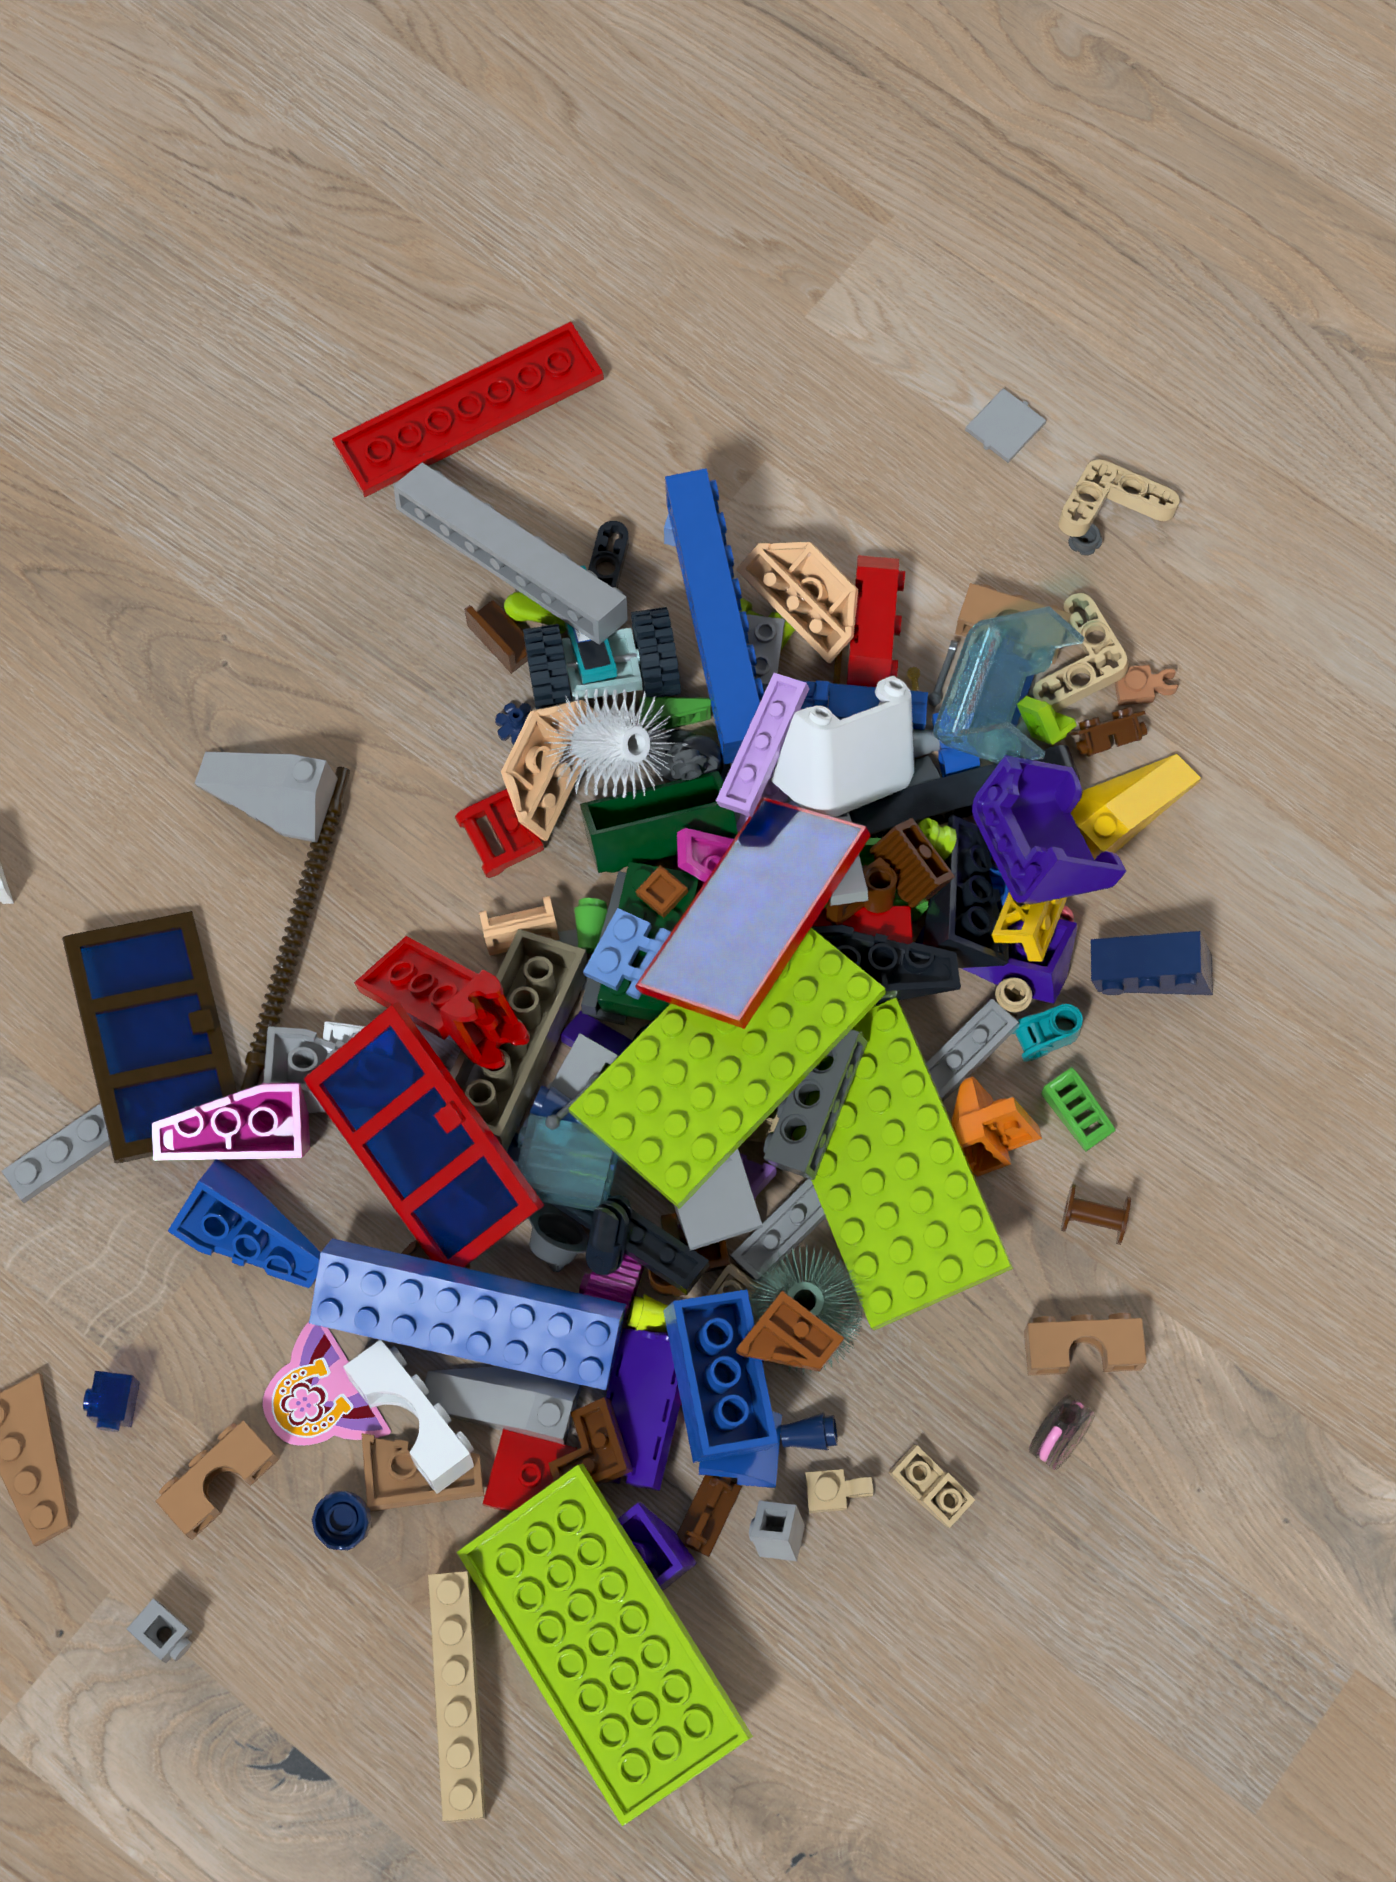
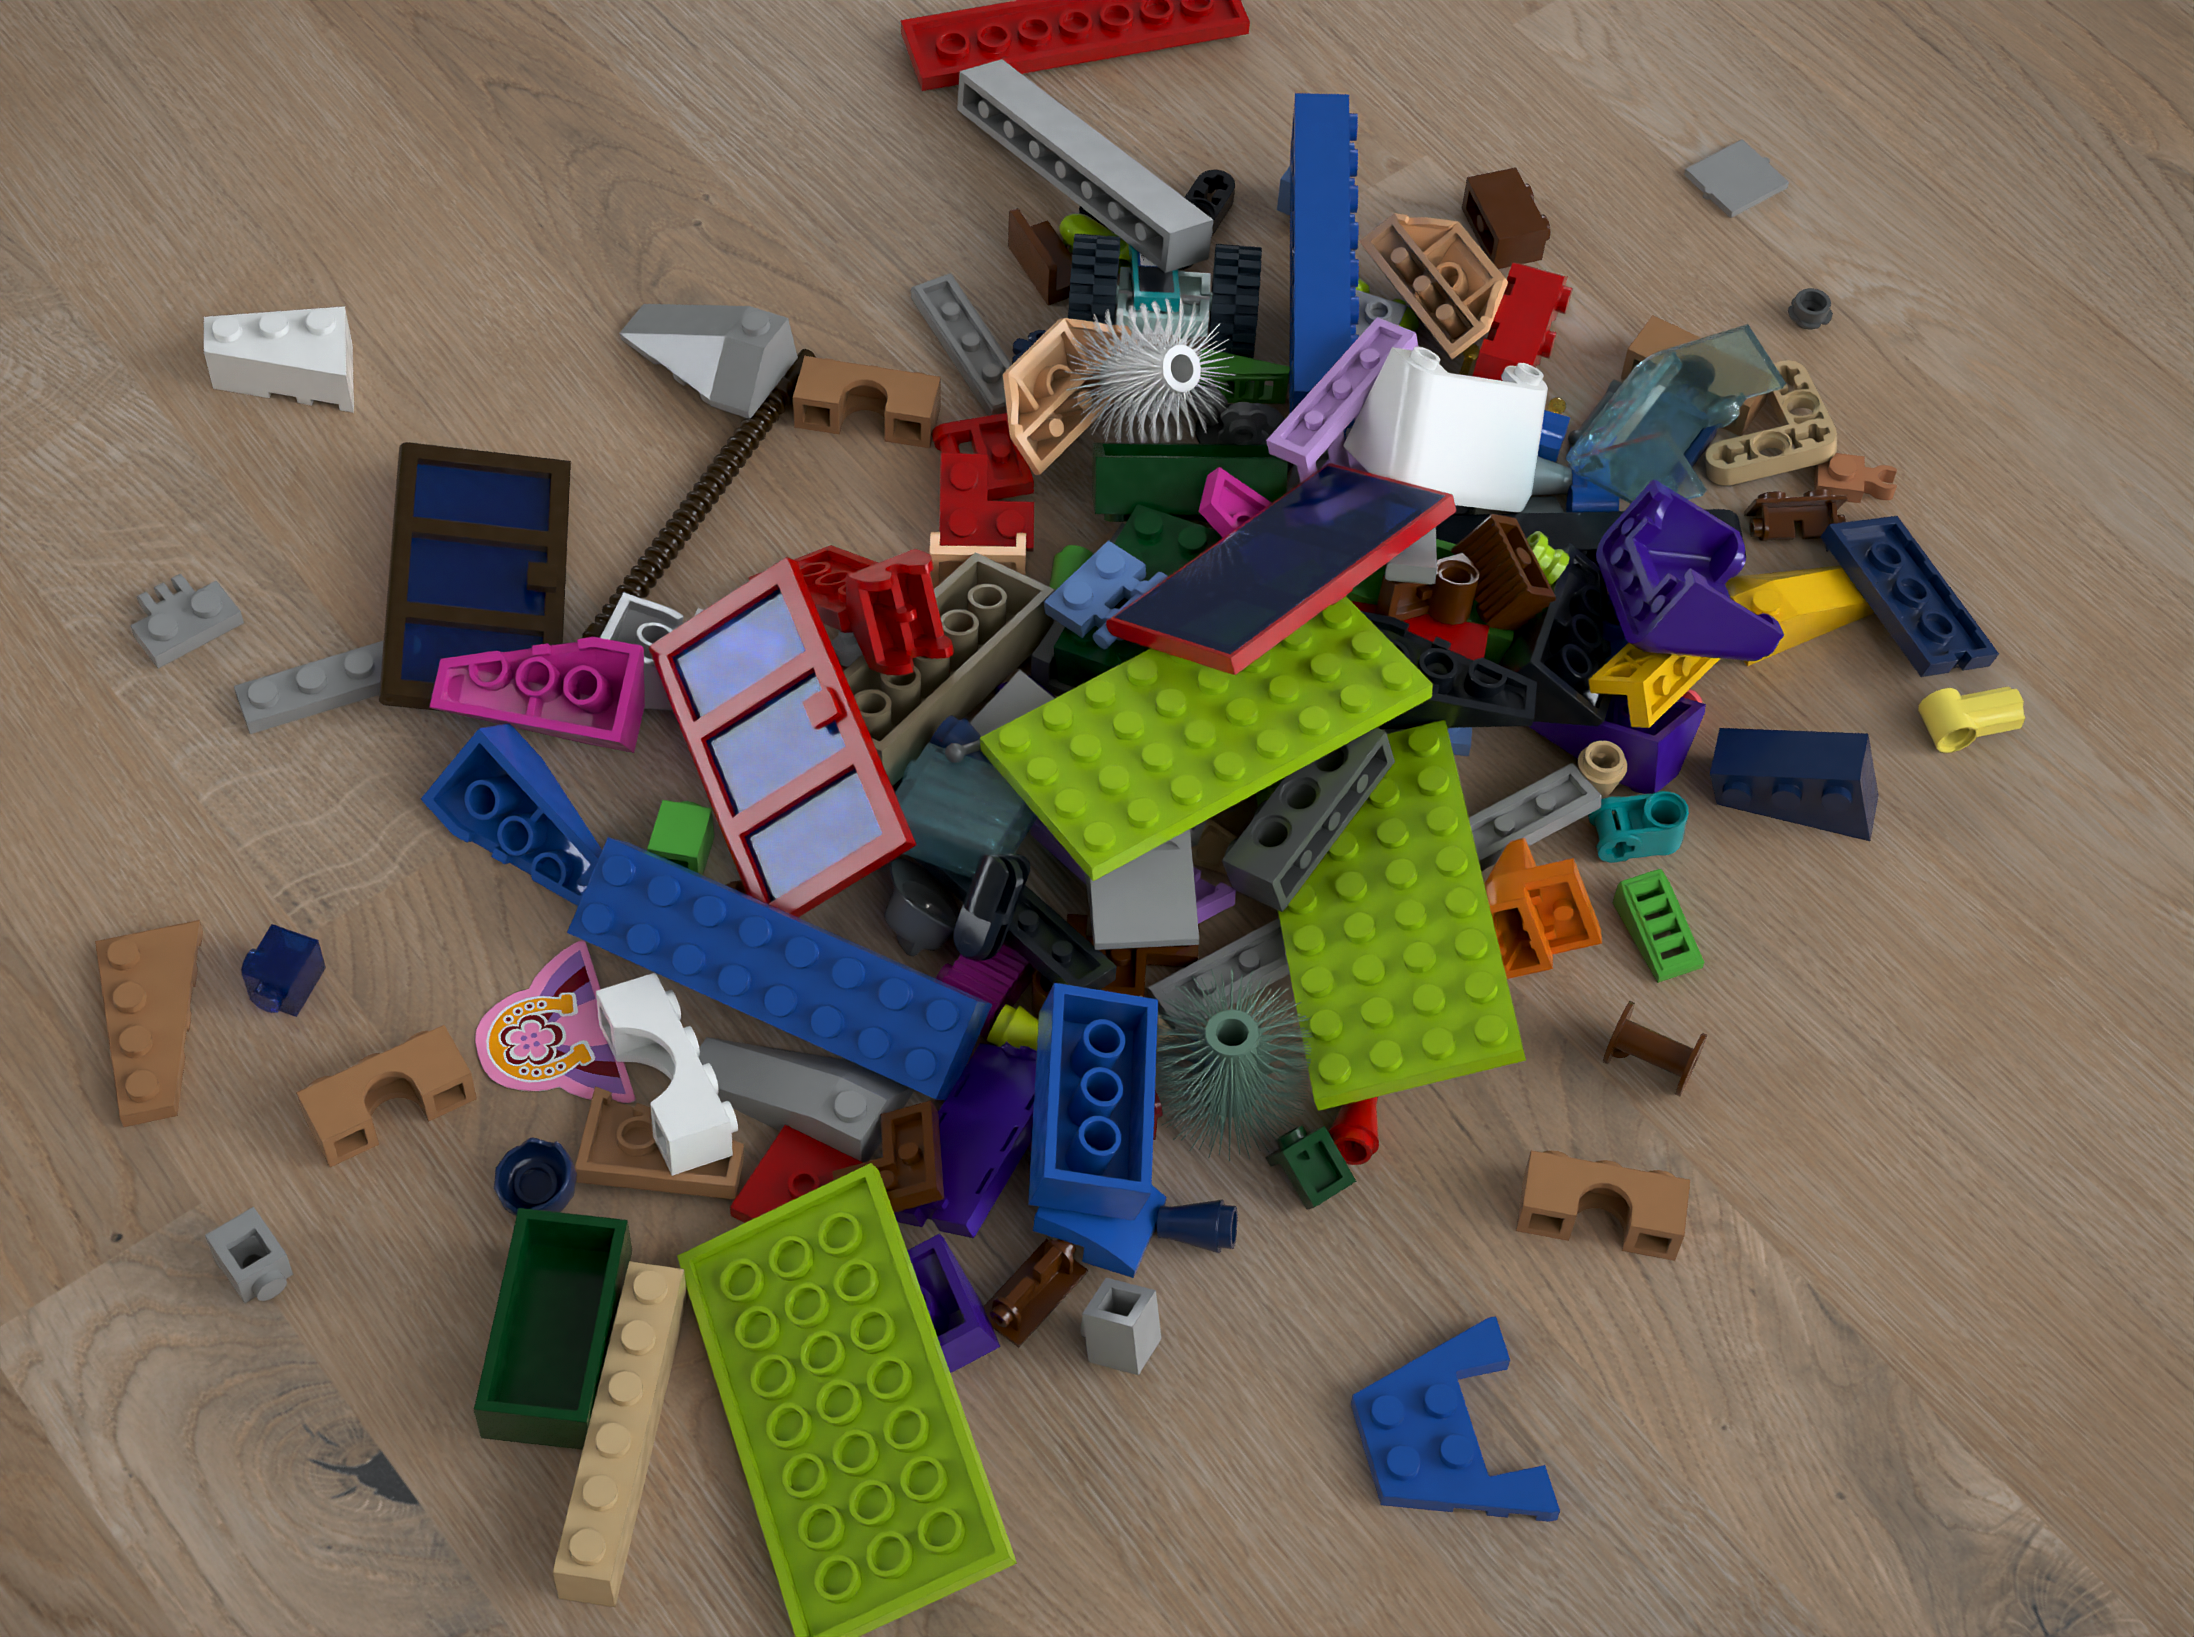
camera: 10 degrees right, 15 degrees down
(367, 1218) = (683, 834): none -> bright green brick
(370, 799) = (834, 389): none -> medium nougat arch
(389, 1634) = (552, 1327): none -> dark green piece
(460, 725) = (964, 339): none -> light grey tile
(504, 889) = (967, 515): none -> red plate
(662, 891) = (1170, 536): dark orange tile -> none
(790, 1336) = (1201, 1063): dark orange wing -> none
(829, 1490) = (1207, 1304): tan plate -> none
(840, 512) = (1505, 218): none -> reddish brown brick
(876, 1366) = (1312, 1164): none -> dark green bracket
(902, 1336) = (1356, 1131): none -> red cone
(931, 1486) = (1348, 1332): tan slope -> none
(999, 1554) = (1425, 1442): none -> blue wing
(1043, 721) = (1715, 476): lime bracket -> none
(1061, 1432) = (1547, 1295): clear smoke head -> none
(1111, 487) = (1849, 254): tan beam -> none
(1204, 783) = (1909, 595): none -> dark blue piece
(1260, 879) = (1958, 720): none -> light yellow piece

